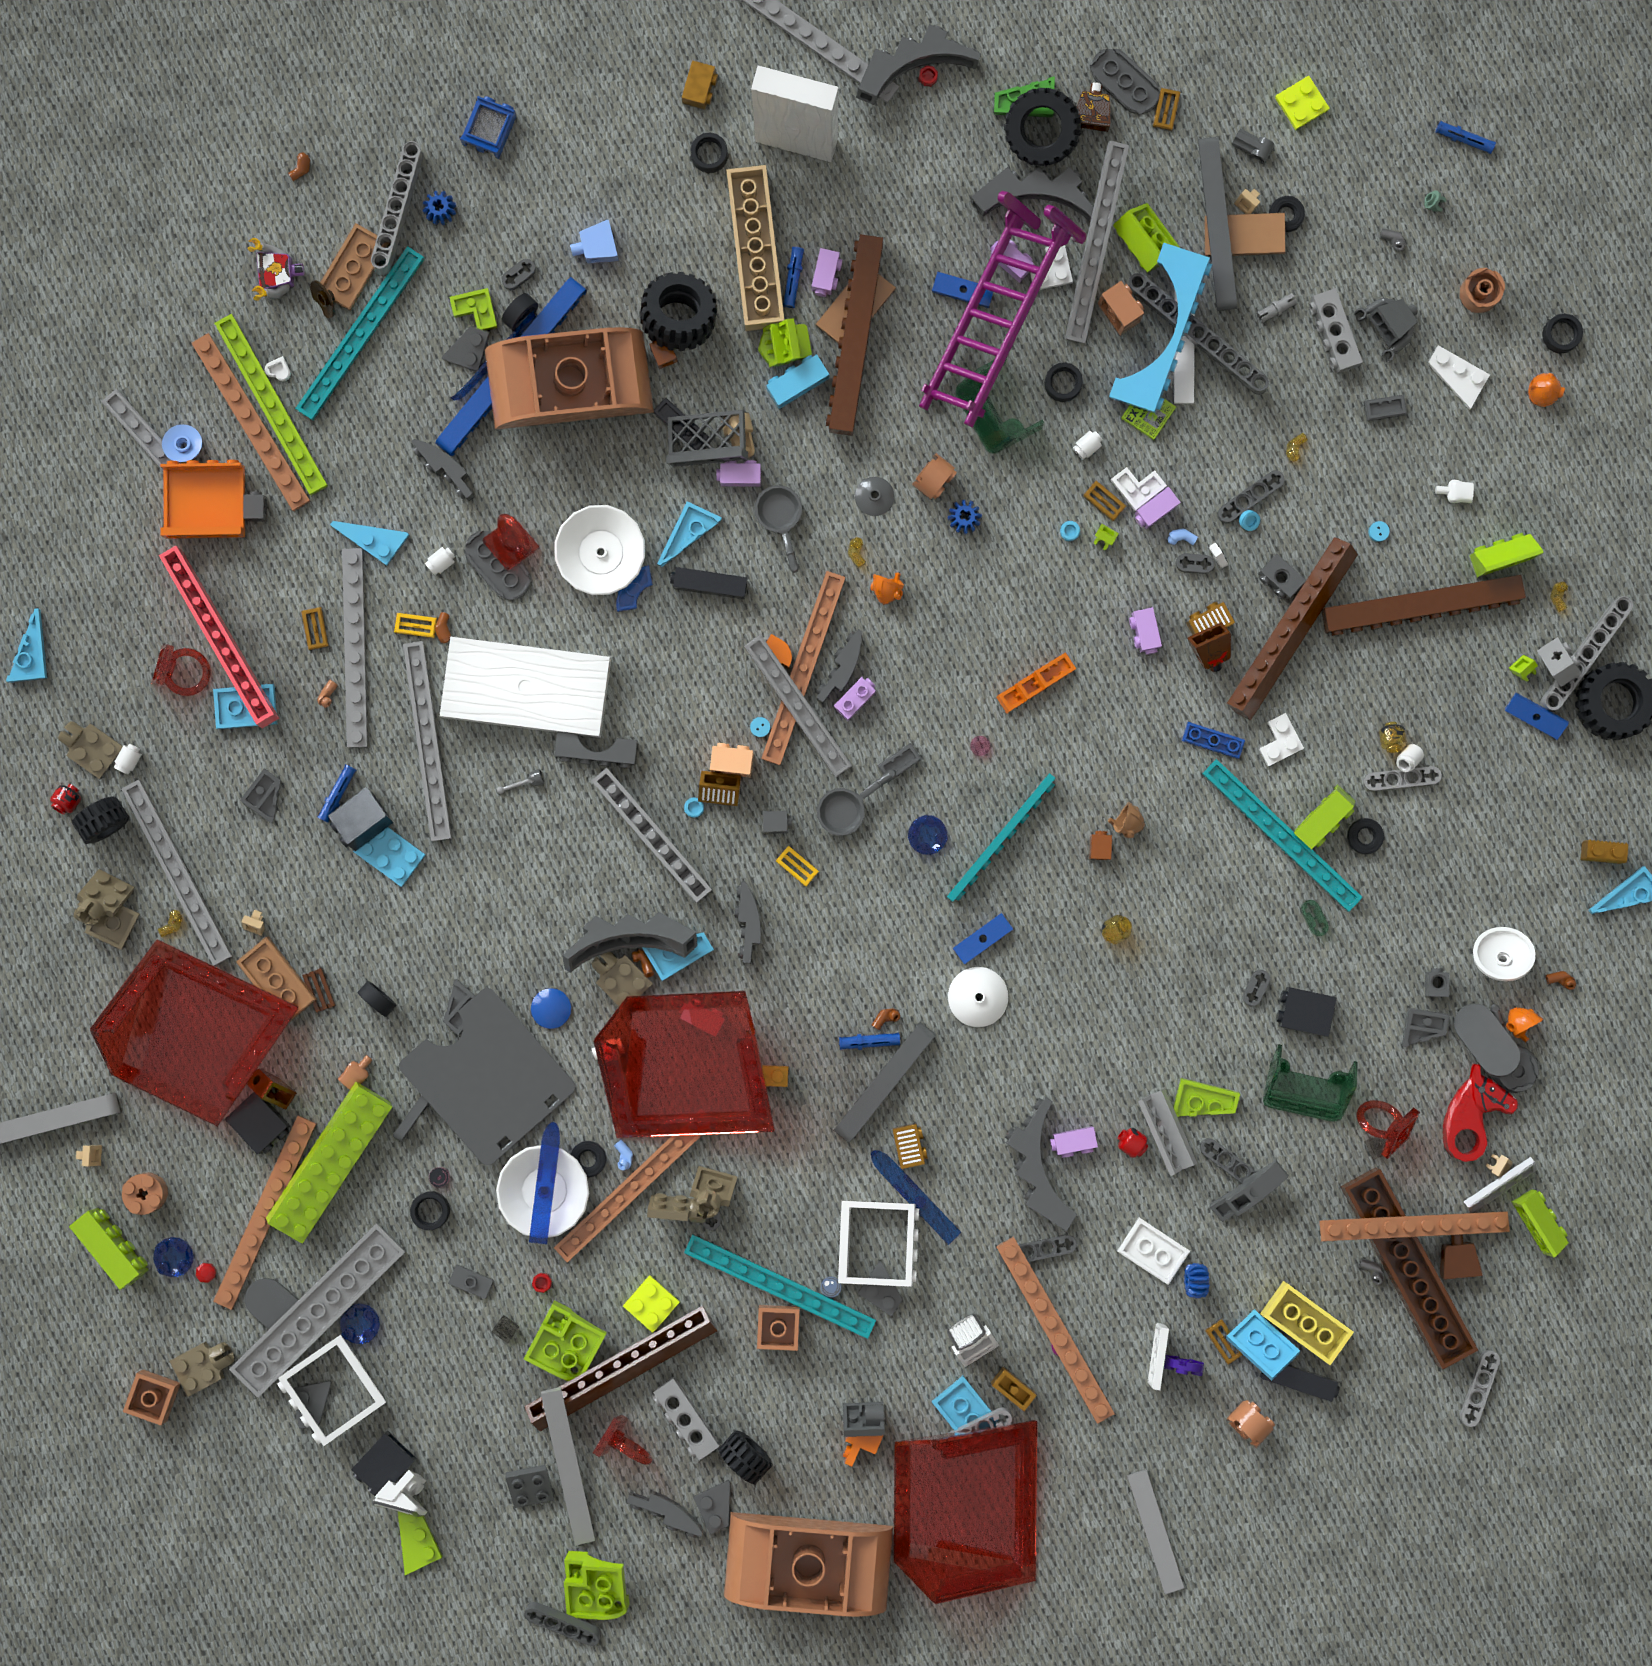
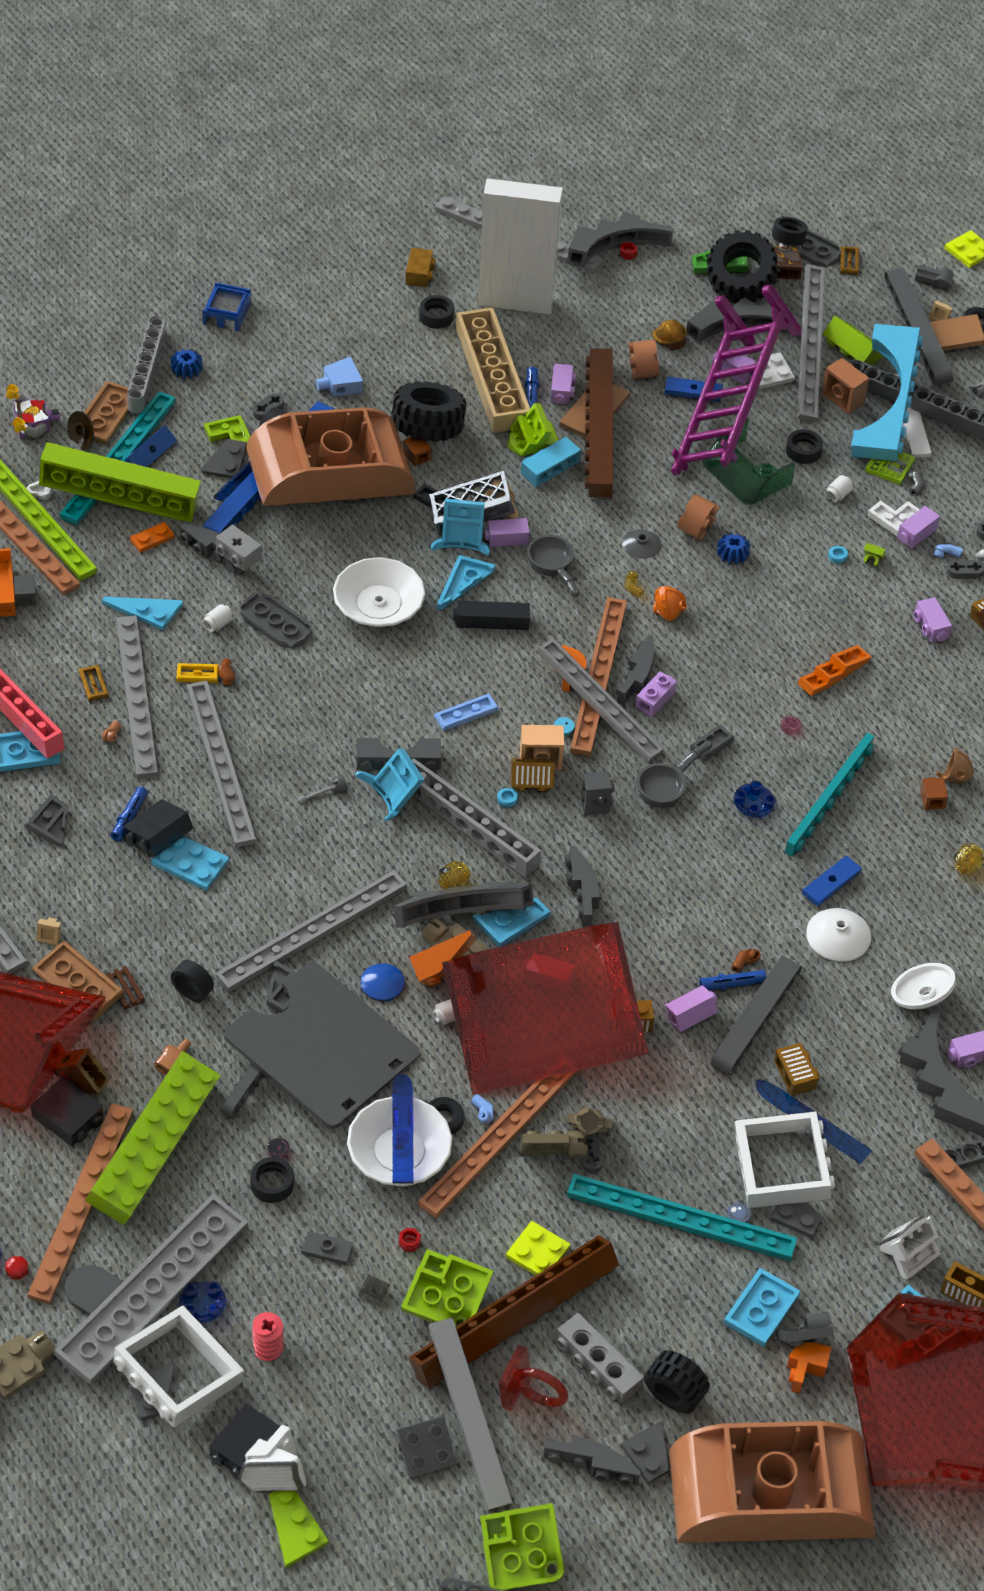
camera: 10 degrees left, 35 degrees down
(303, 165) = (51, 346): dark orange arm -> none
(353, 384) = (119, 482): none -> lime brick
(385, 444) = (152, 537): none -> orange plate
(402, 319) = (156, 443): none -> blue tile
(408, 1381) = (267, 1336): none -> coral piece
(460, 473) = (238, 547): none -> light grey brick
(493, 946) = (311, 931): none -> light grey plate
(510, 542) = (286, 597): clear red tile -> none
(525, 687) = (317, 708): white tile -> none
(588, 791) = (395, 781): none -> medium azure piece
(599, 1005) = (429, 962): none -> orange slope
(628, 596) = (415, 627): blue tile -> none
(629, 900) = (454, 874): none -> clear yellow head
(645, 962) = (476, 929): dark orange arm -> none
(668, 699) = (466, 712): none -> light blue tile
(692, 470) = (462, 526): none -> medium azure piece
(778, 1327) = (688, 1252): nougat brick -> none
(783, 855) = (622, 840): yellow tile -> none
(825, 1072) = (691, 1008): none -> lavender brick
(833, 1382) = (762, 1307): none -> medium azure plate
(916, 249) = (644, 359): none -> nougat brick
(951, 207) = (671, 334): none -> pearl gold piece
(1033, 1065) = (923, 986): none -> white dish
(1099, 506) = (864, 532): pearl gold tile -> none
(1109, 57) = (789, 231): none -> black tyre
(1172, 438) = (918, 480): none -> flat silver arm

